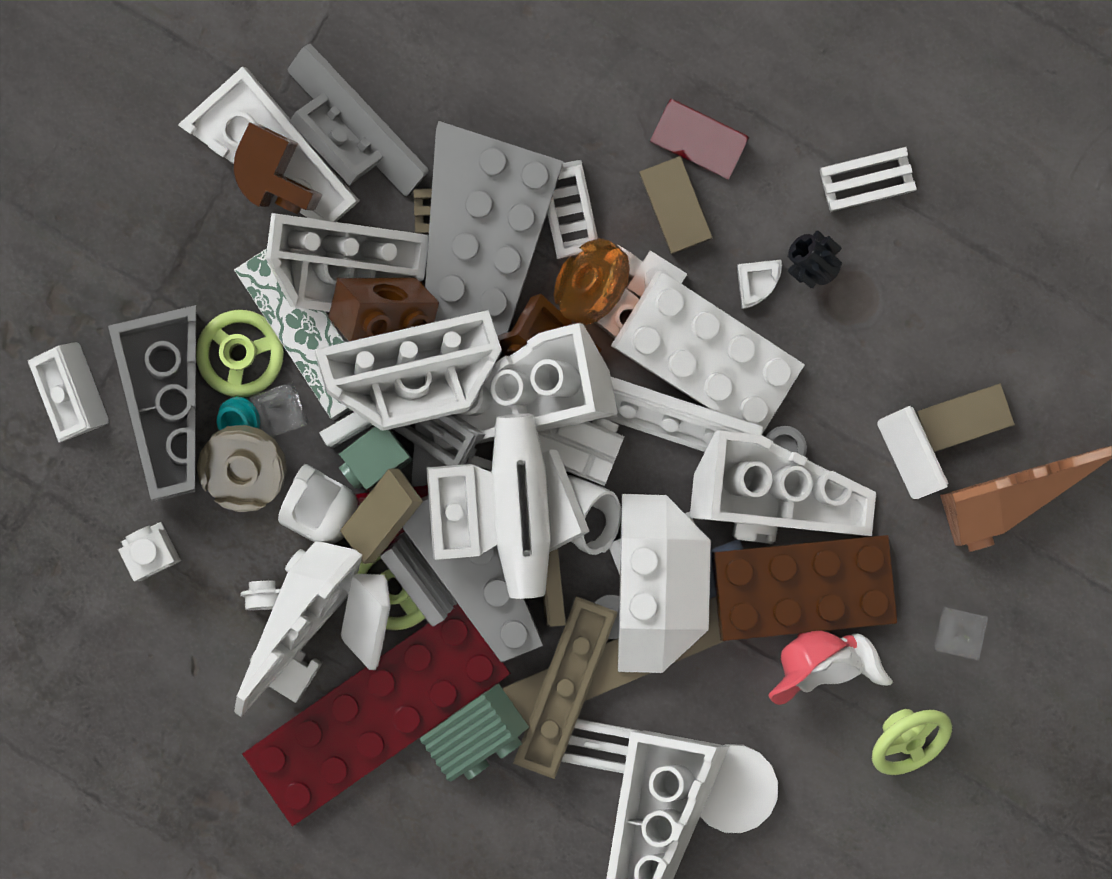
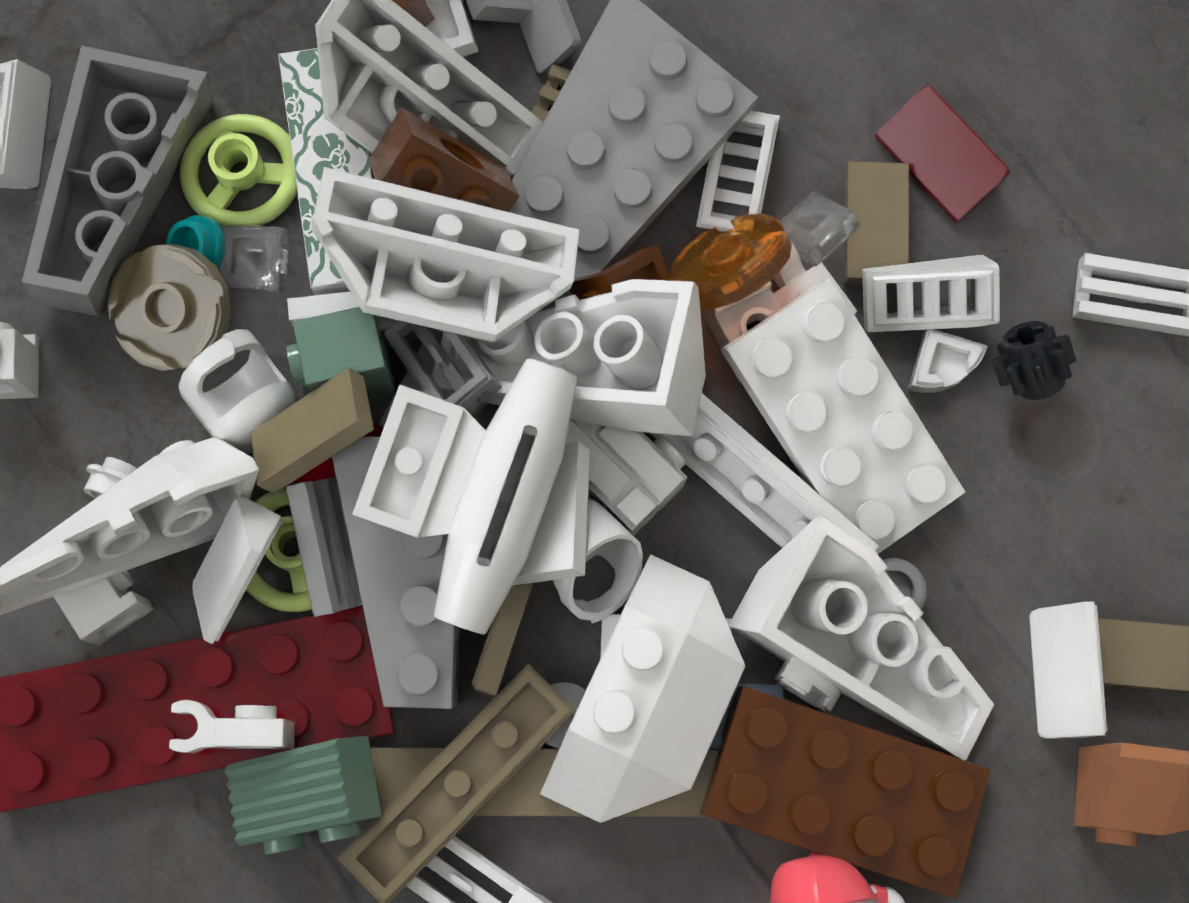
camera: 20 degrees right, 10 degrees down
(426, 710) = (250, 729): none -> white plate
(637, 229) = (818, 227): none -> clear tile
(749, 250) = (981, 311): none -> white slope

